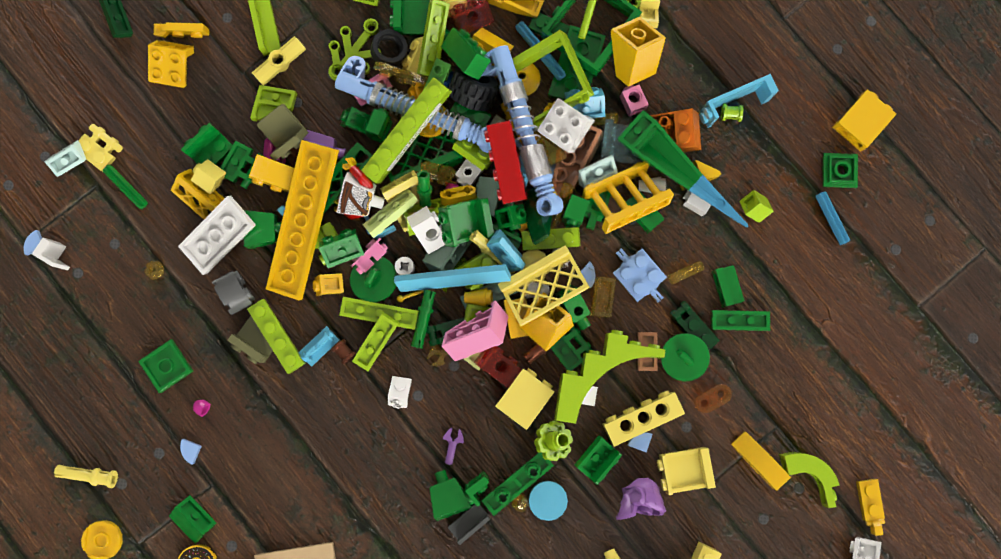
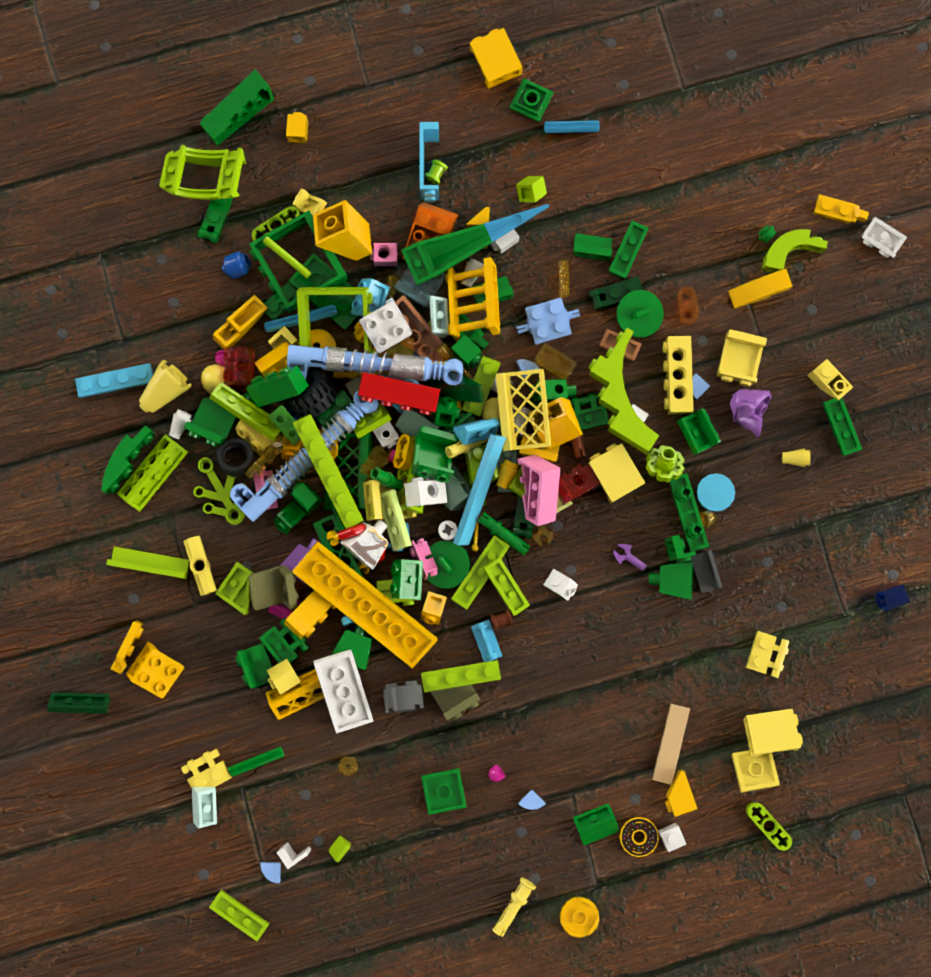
camera: 65 degrees left, 0 degrees up
(76, 294) = (339, 848): none -> lime slope
(517, 41) = (282, 336): none -> light yellow panel
(816, 444) = (766, 233): none -> green plate

